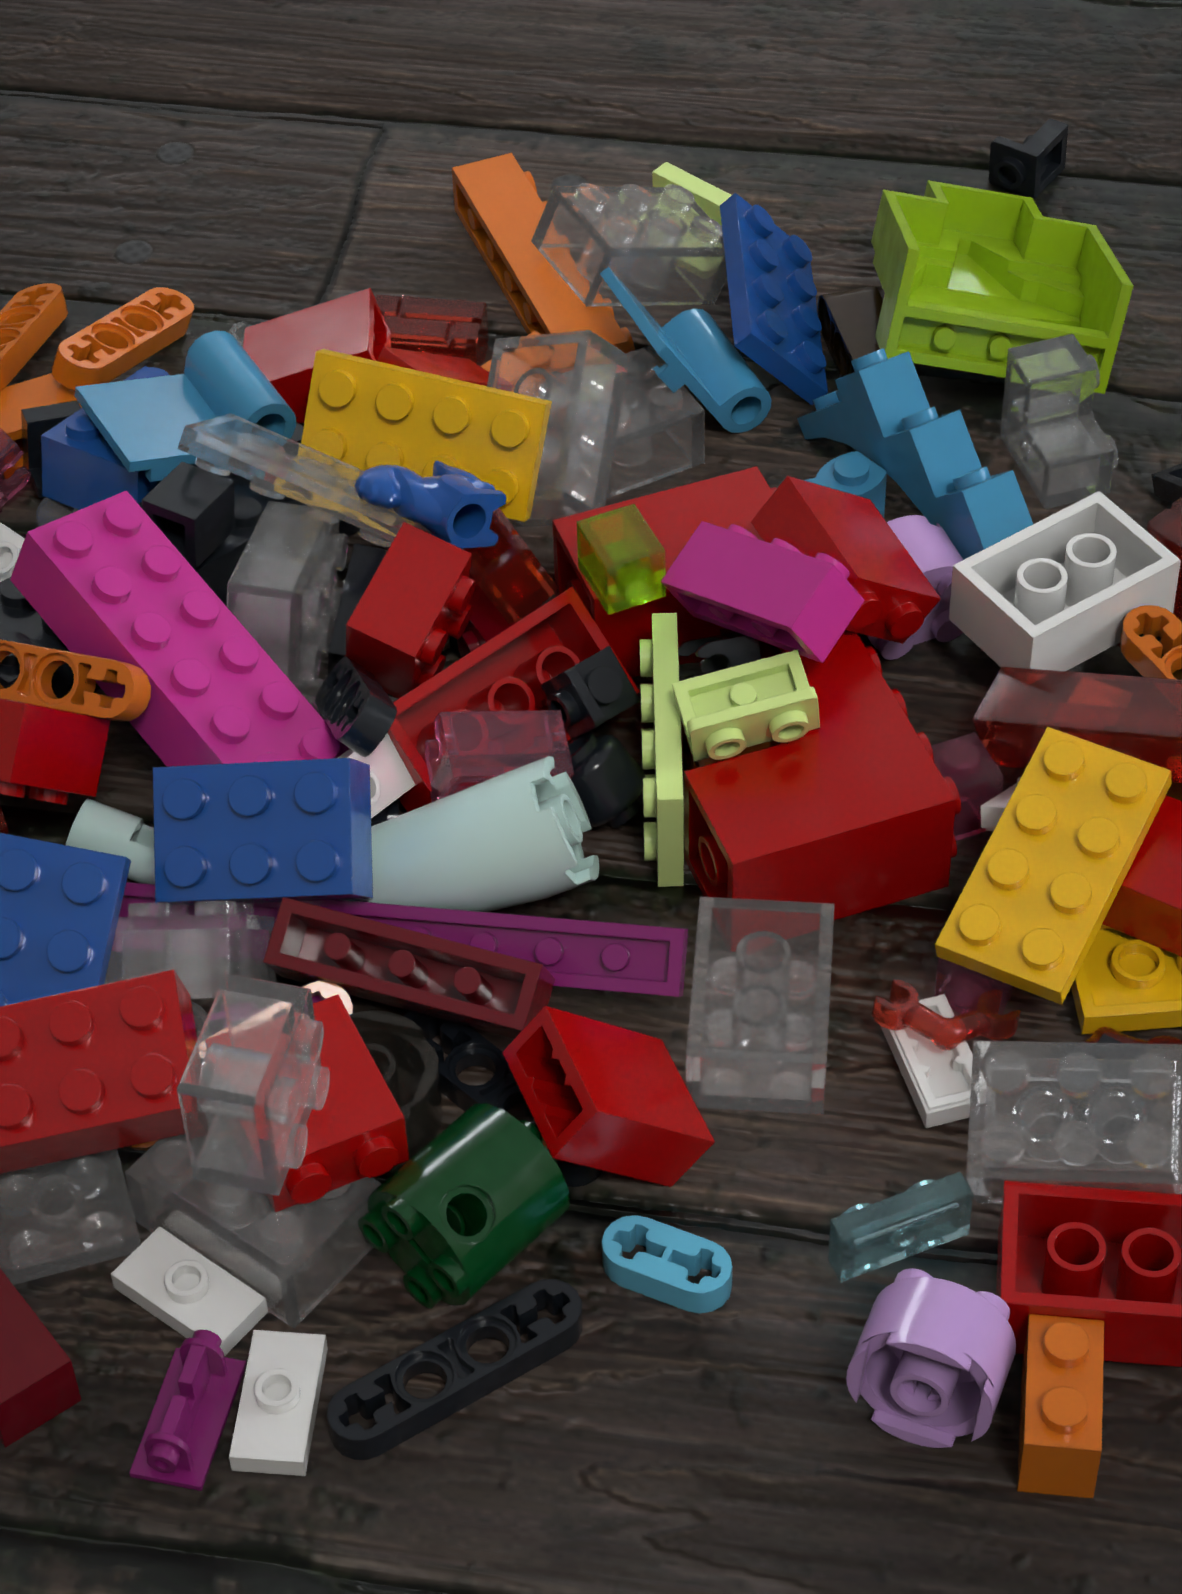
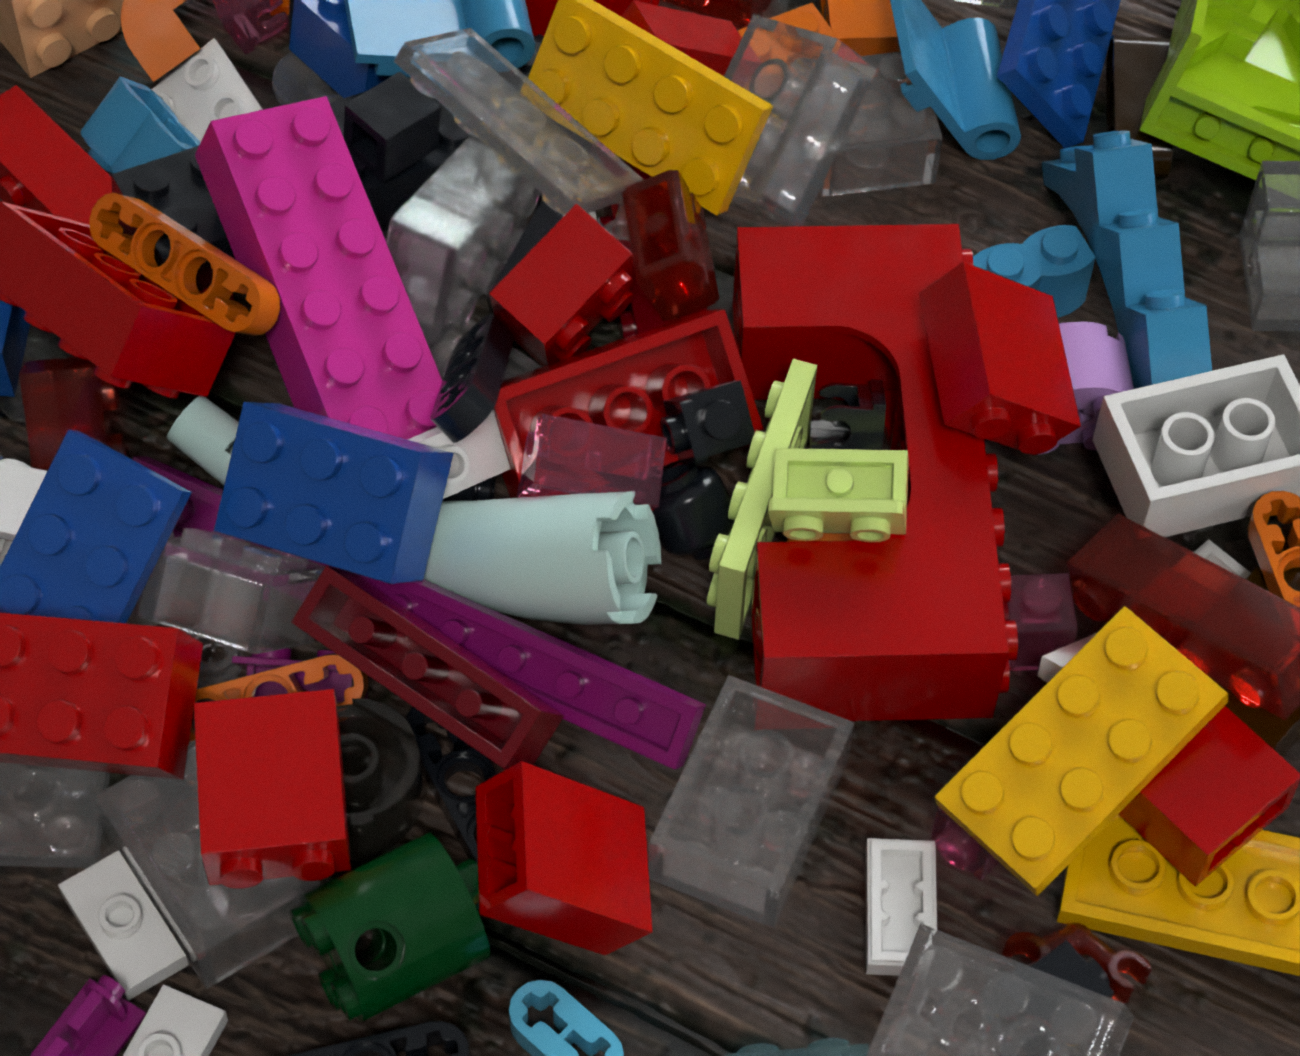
camera: 15 degrees right, 10 degrees up
(253, 1084) = (200, 776): clear brick -> none
(448, 504) = (628, 195): blue animal -> none
(621, 558) = (779, 296): clear neon green brick -> none
(764, 589) = (900, 374): dark pink brick -> none
(942, 1031) = (918, 887): clear red arm -> none

